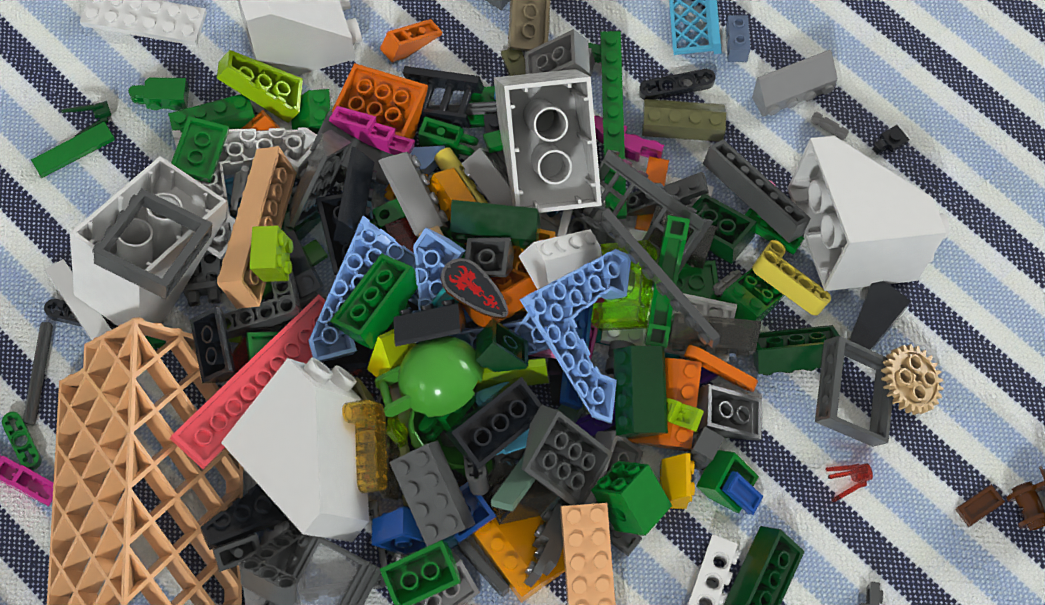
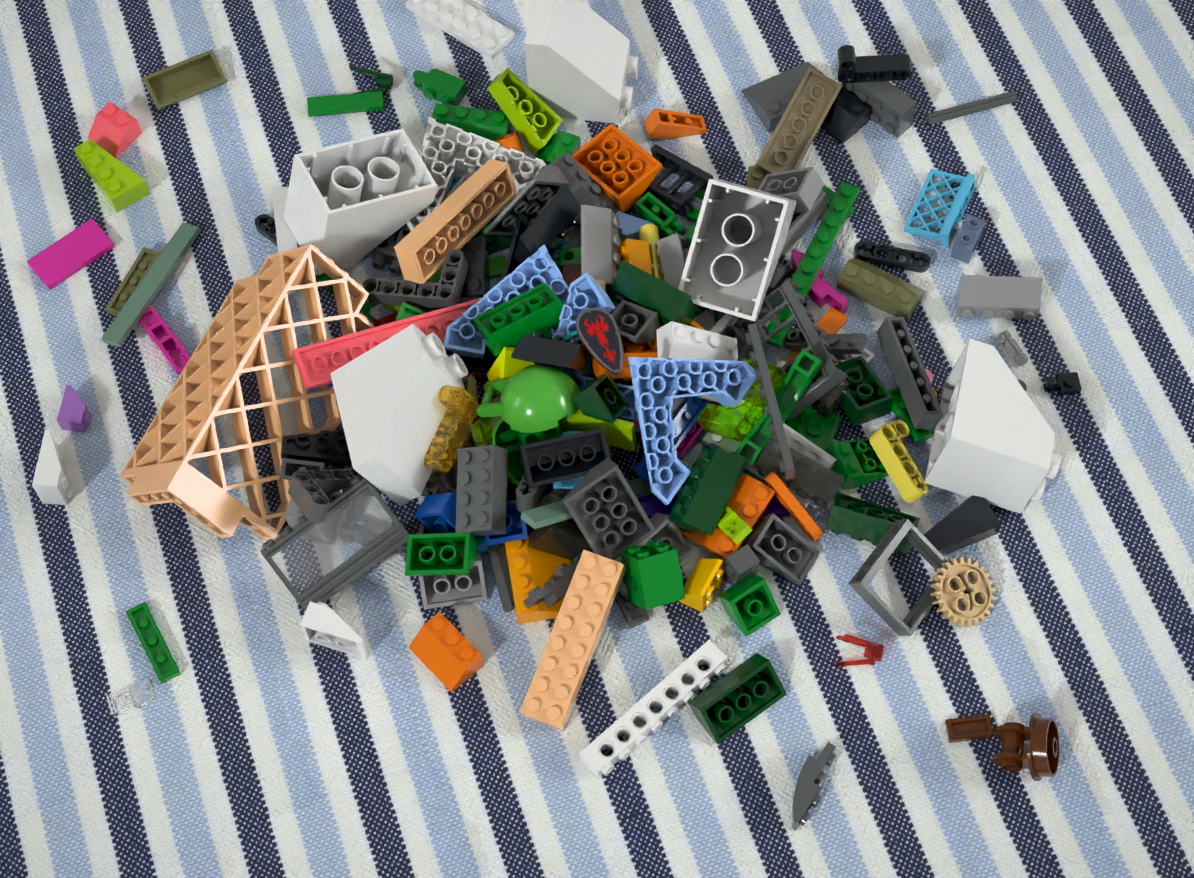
camera: 30 degrees right, 5 degrees down
(20, 450) = (178, 309): green beam -> none
(37, 373) = (224, 268): dark grey axle -> none
(137, 275) = (364, 217): dark grey window -> none
(200, 148) = (443, 139): green plate -> none
(213, 346) = (368, 298): black slope -> none
(270, 253) = (450, 242): lime brick -> none
(368, 131) = (590, 181): dark pink slope -> none
(726, 282) = (842, 437): light grey axle -> none
(742, 493) = (756, 618): blue tile -> none

